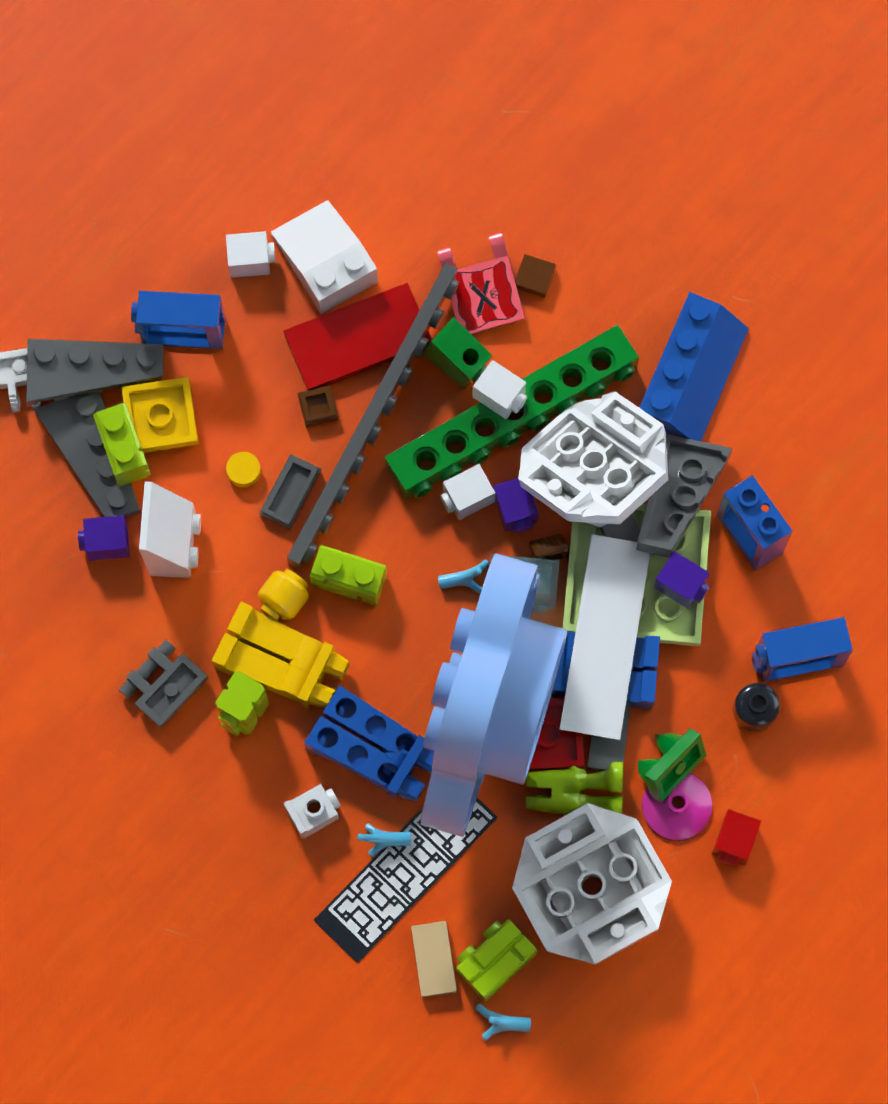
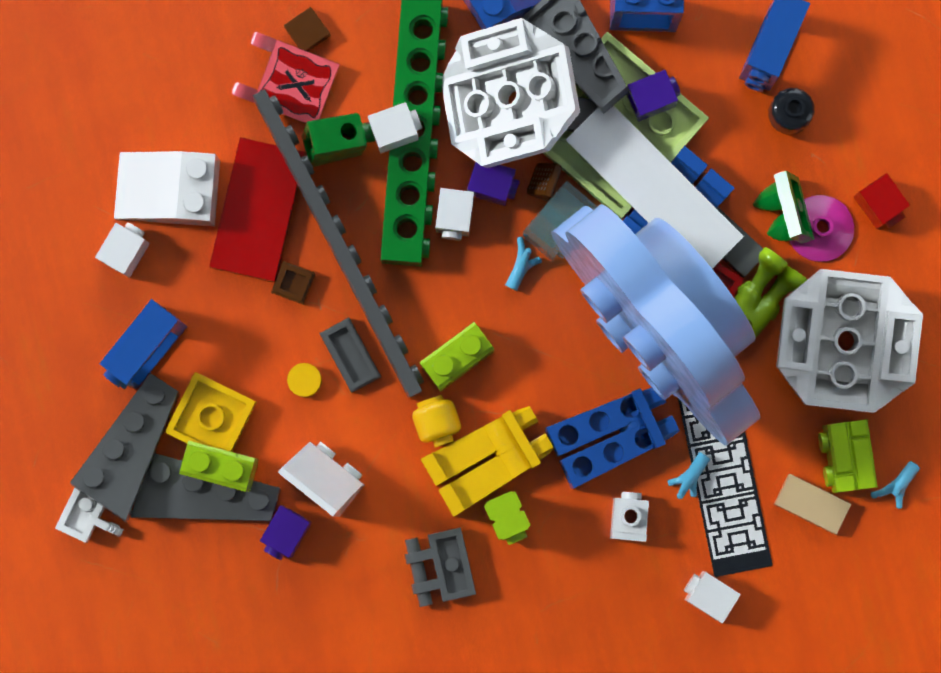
camera: 55 degrees left, 10 degrees up
(293, 924) = (711, 596): none -> white brick

